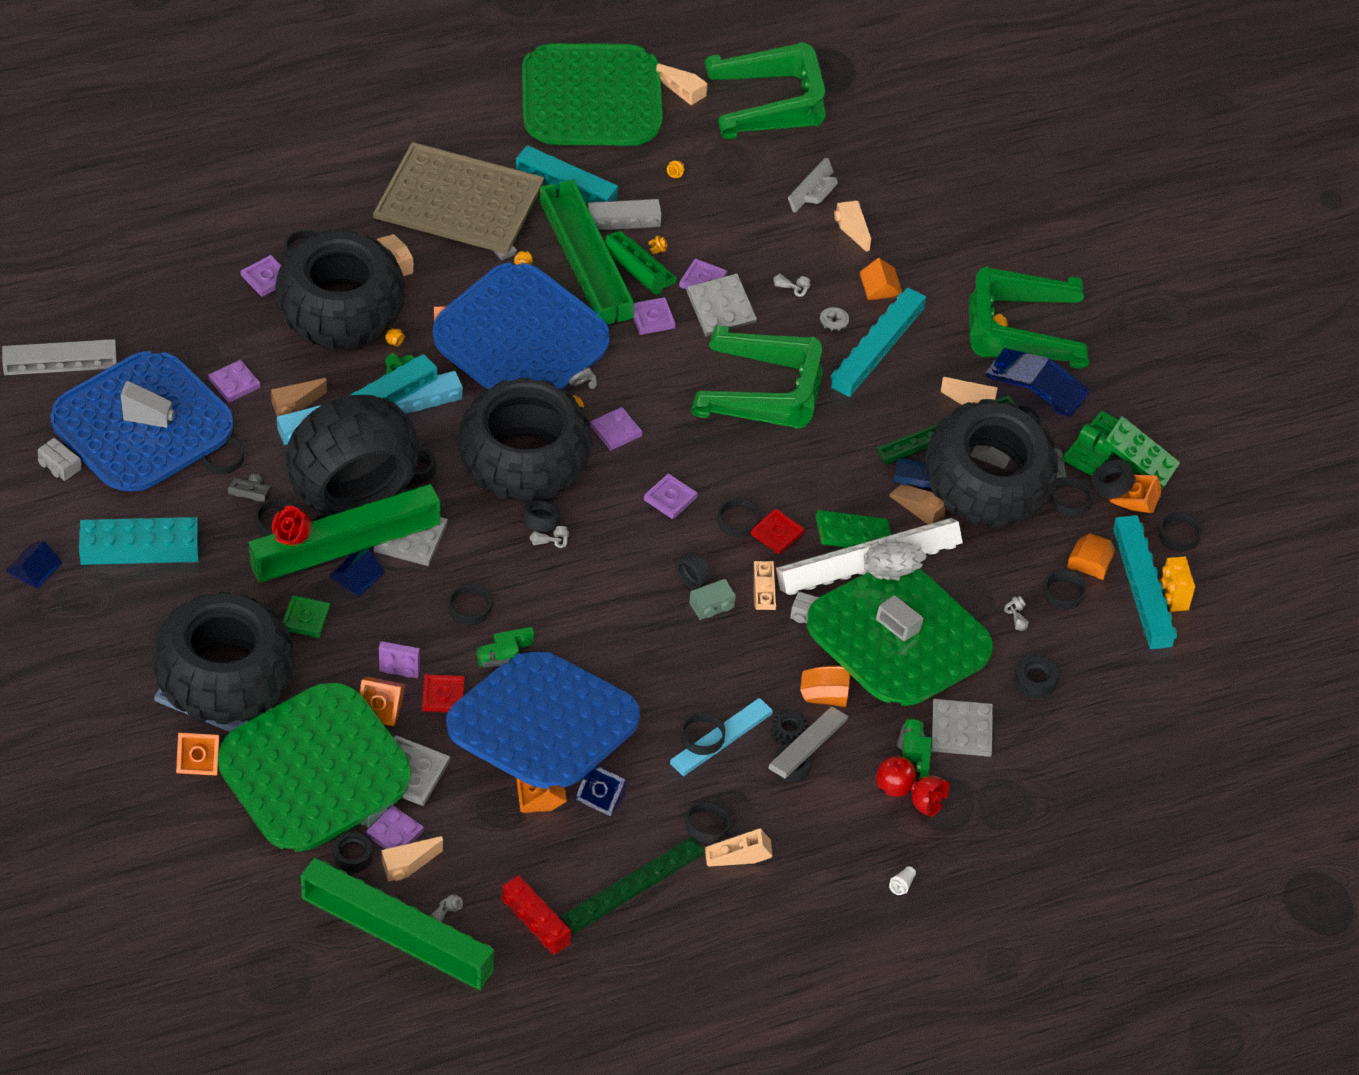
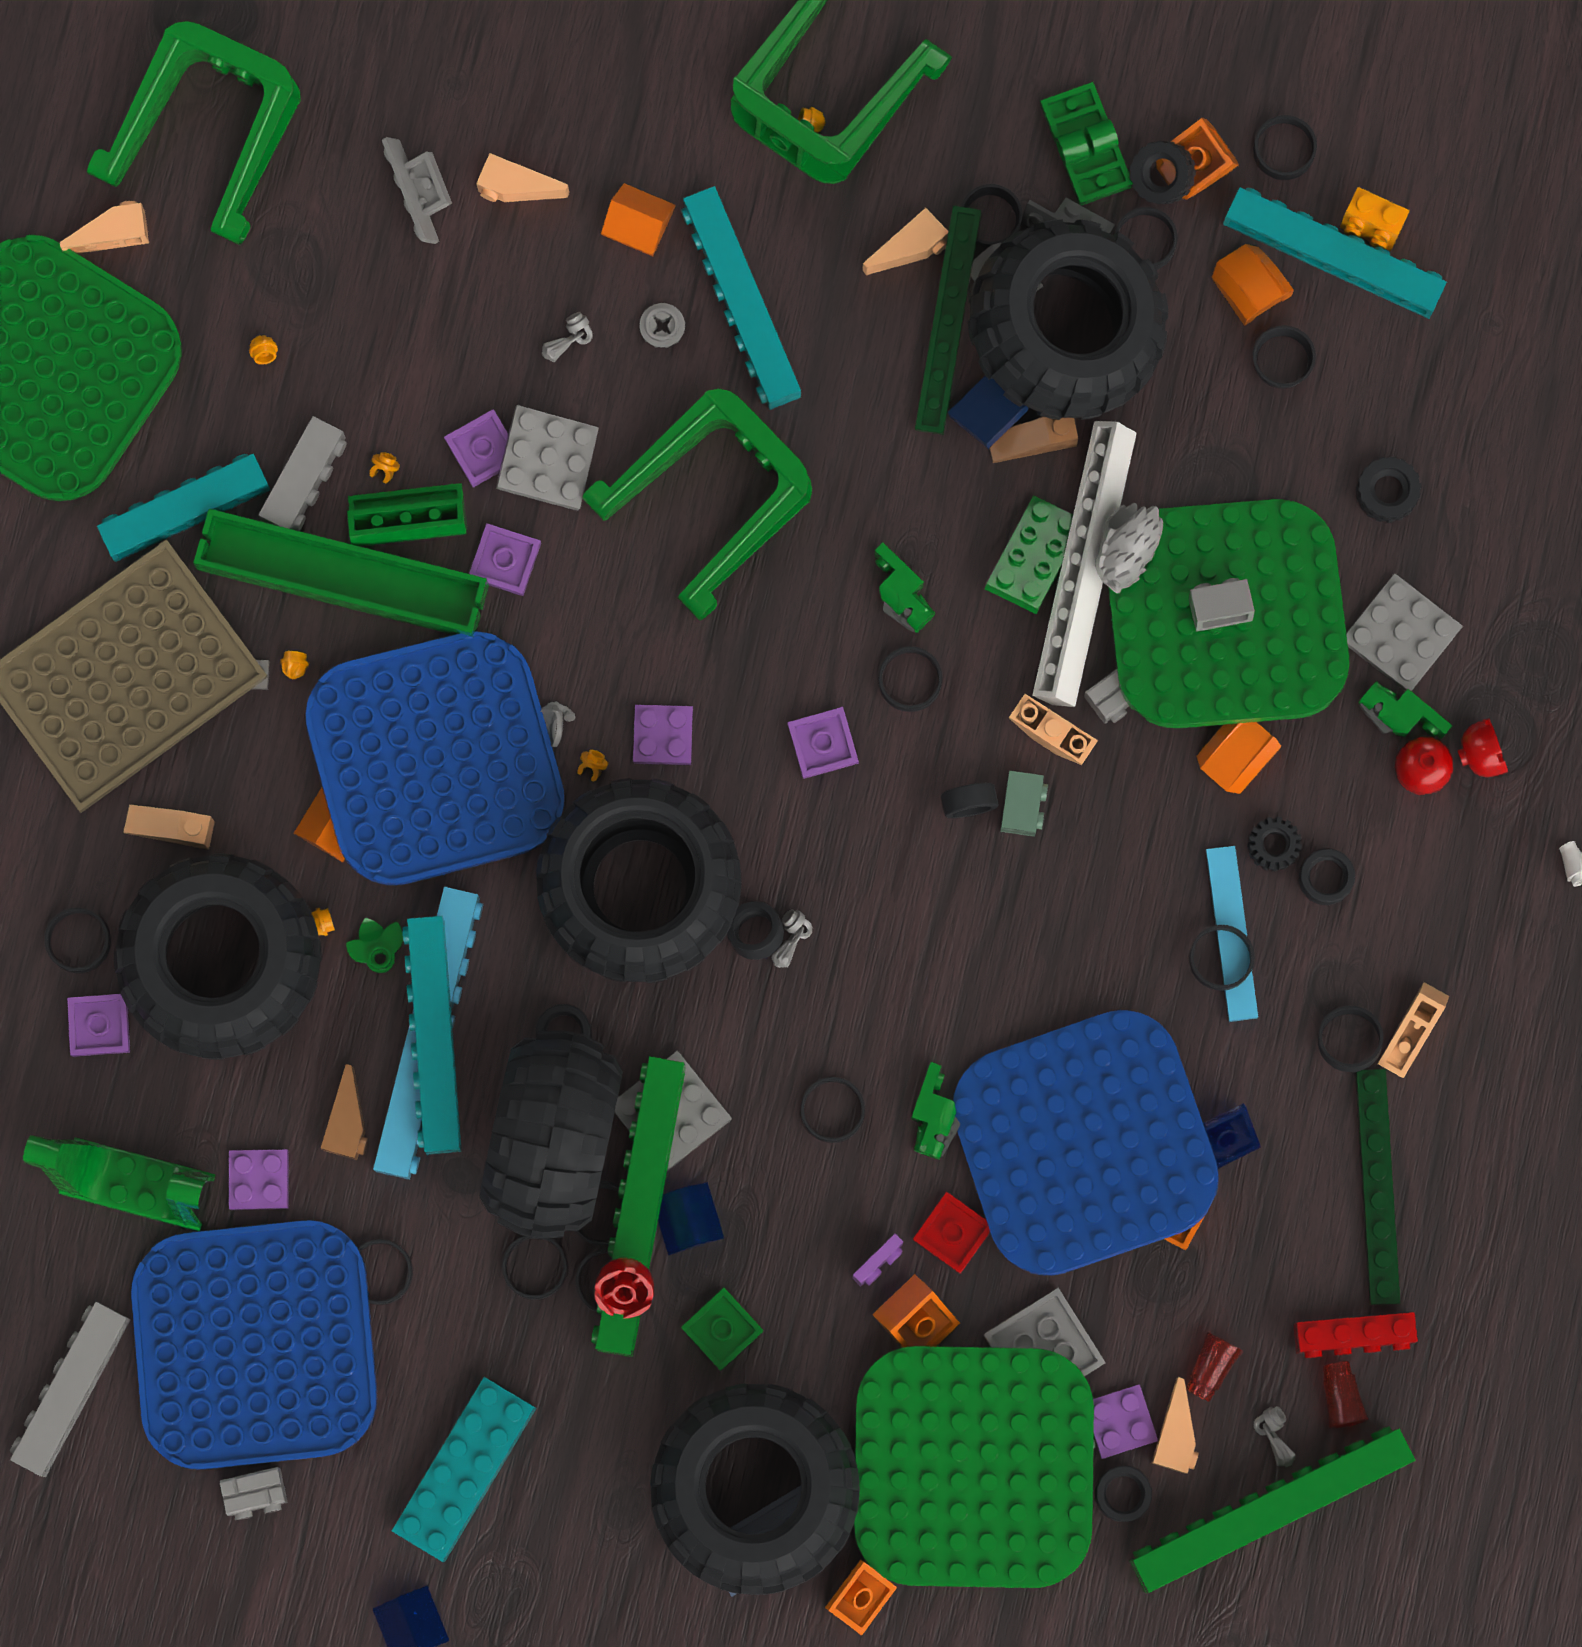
camera: 50 degrees left, 30 degrees up
(145, 407) = (255, 1333): light grey slope -> none
(184, 299) = (120, 1179): none -> green piece
(250, 489) = (465, 1272): dark grey plate -> none
(461, 854) = (1212, 1366): none -> clear red plant
(494, 927) = (1342, 1396): none -> clear red plant
(777, 531) = (966, 647): red plate -> none
(782, 487) = (901, 591): none -> green plate
(808, 742) = (1320, 841): light grey tile -> none
(1020, 622) = (1296, 448): light grey piece -> none
(1042, 377) = (939, 143): clear blue windscreen -> none
(1140, 451) = (1144, 106): green plate -> none

